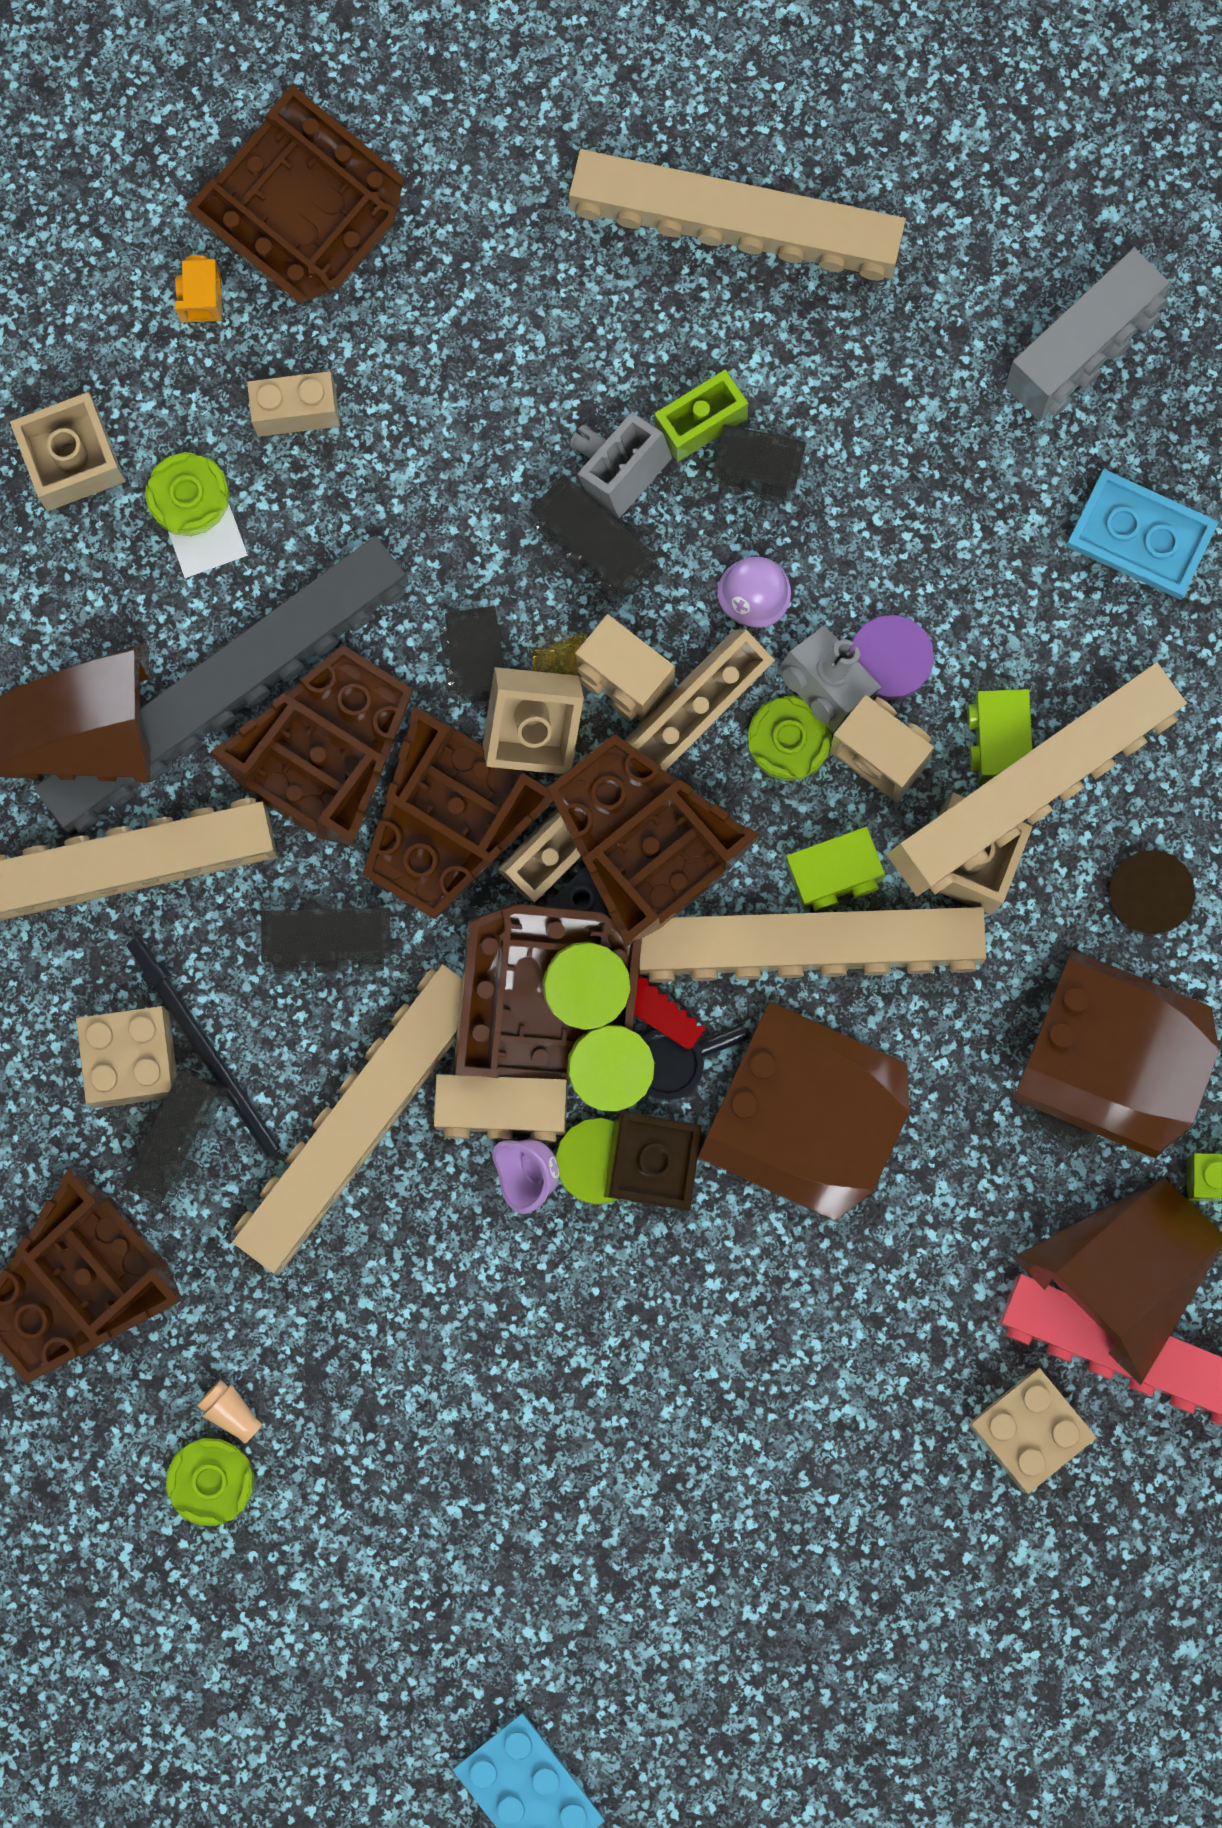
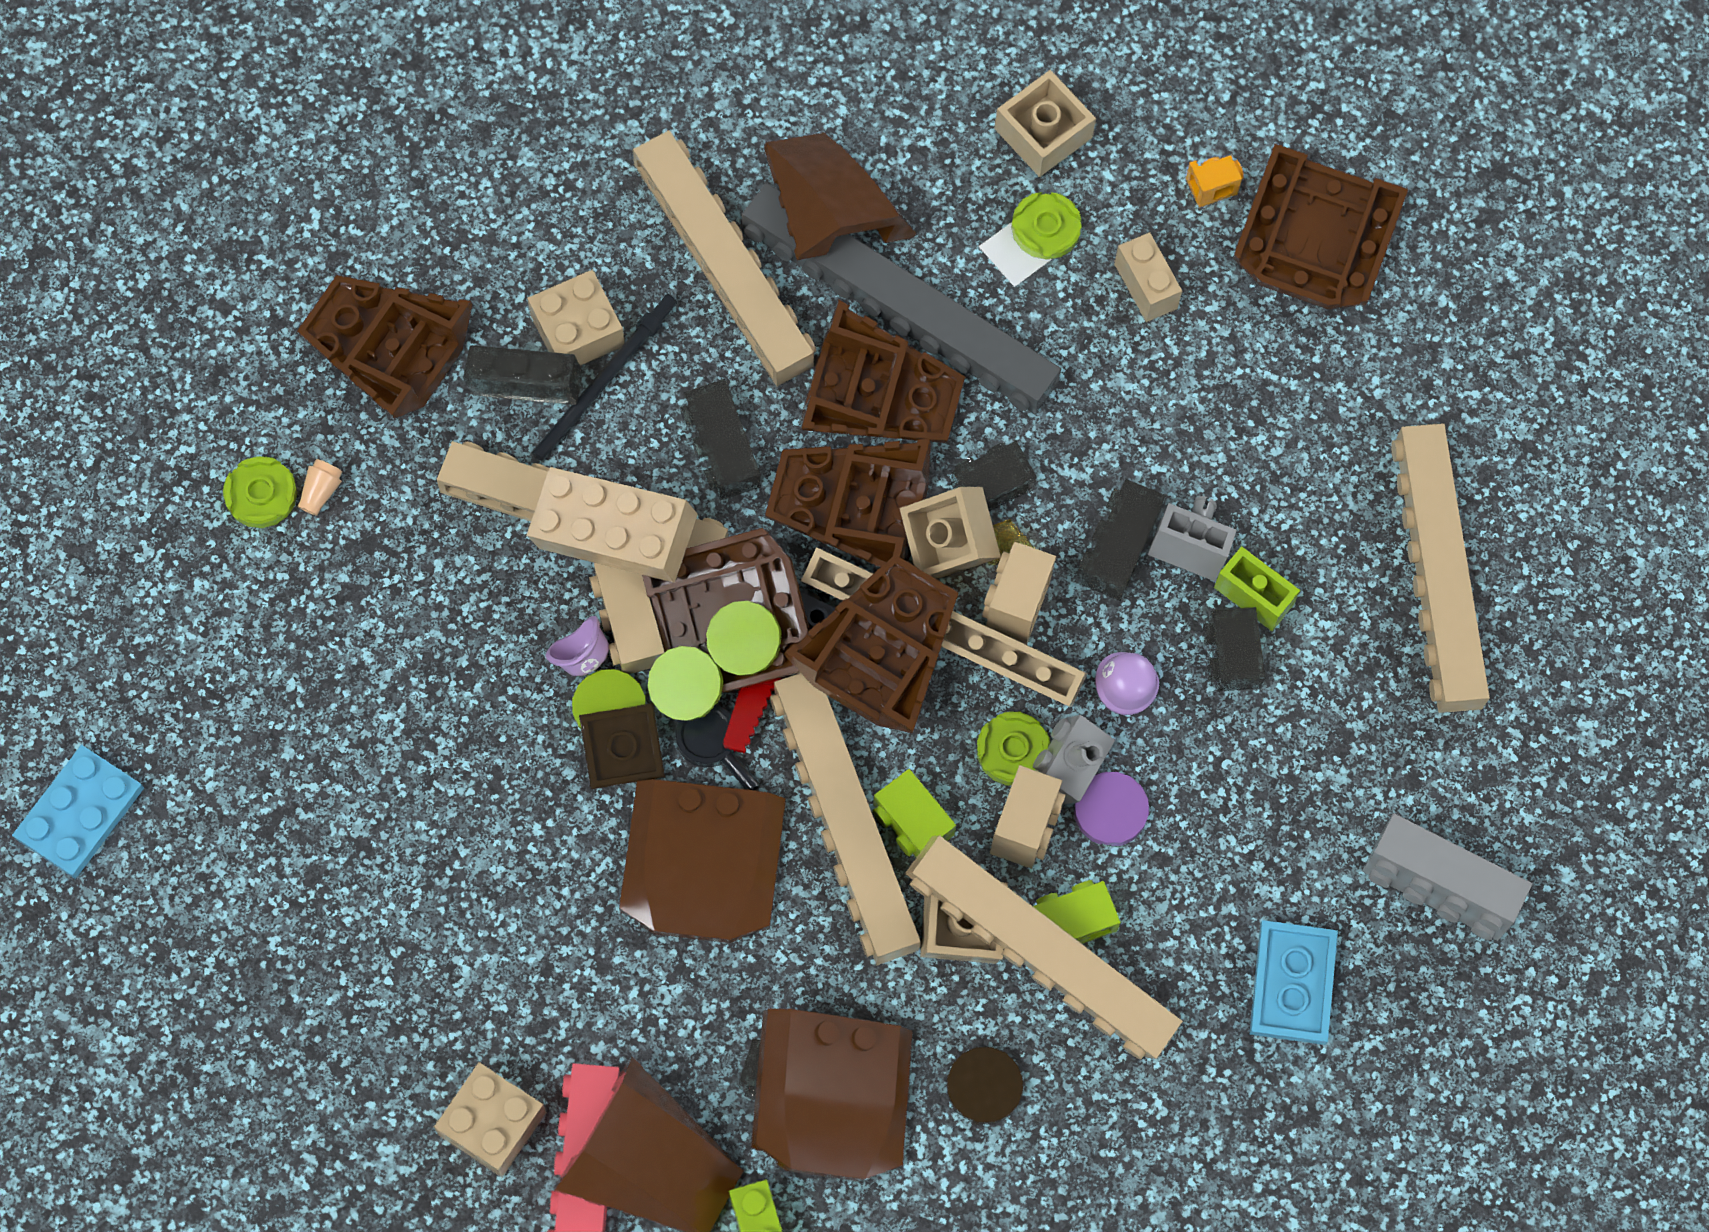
camera: 60 degrees right, 10 degrees down
(406, 1089) = (612, 524): none -> tan brick

